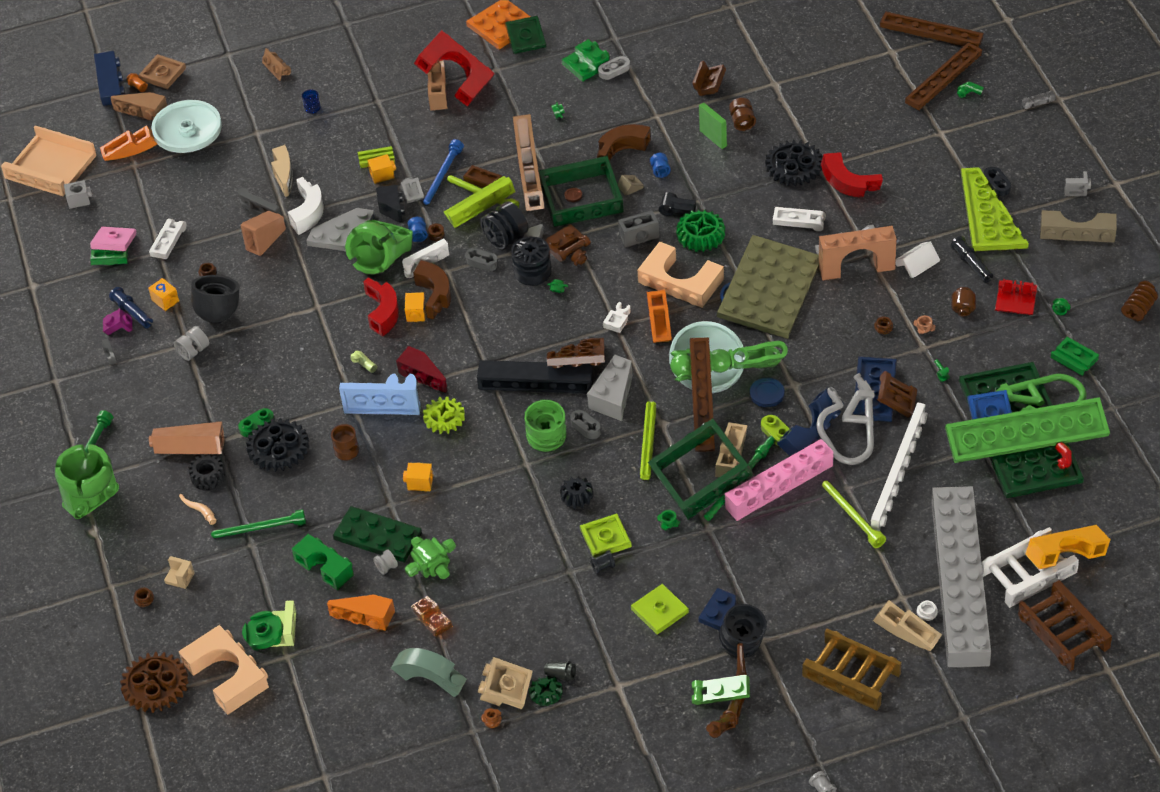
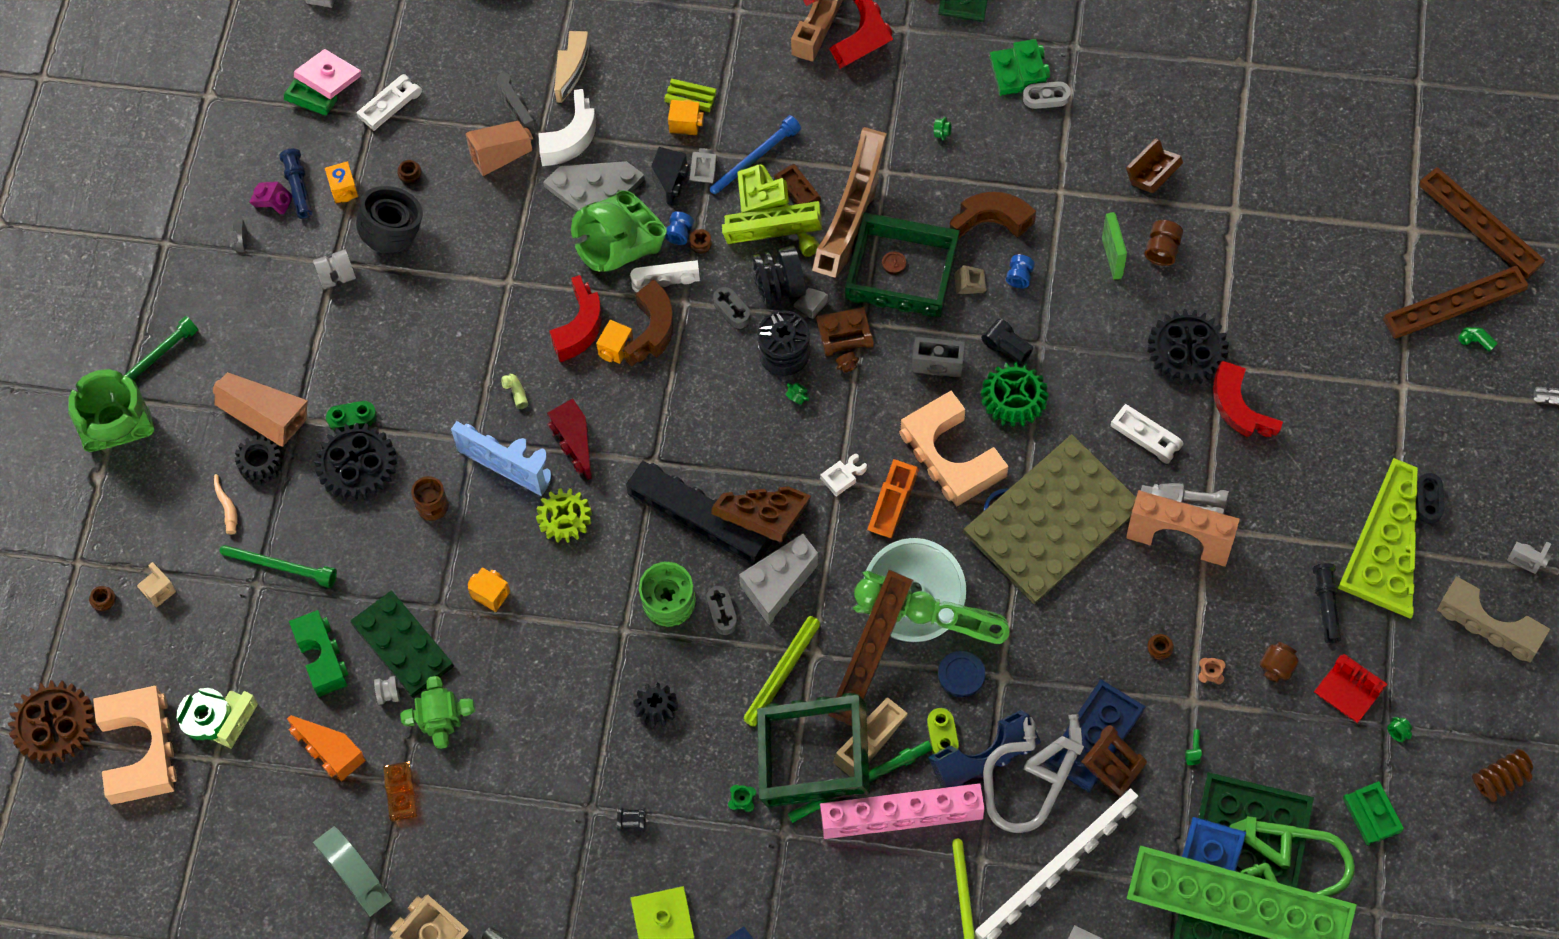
camera: 25 degrees right, 15 degrees up
(459, 191) = (756, 194): none -> lime plate
(605, 535) = (655, 783): lime plate -> none
(918, 259) = (1260, 568): white panel -> none

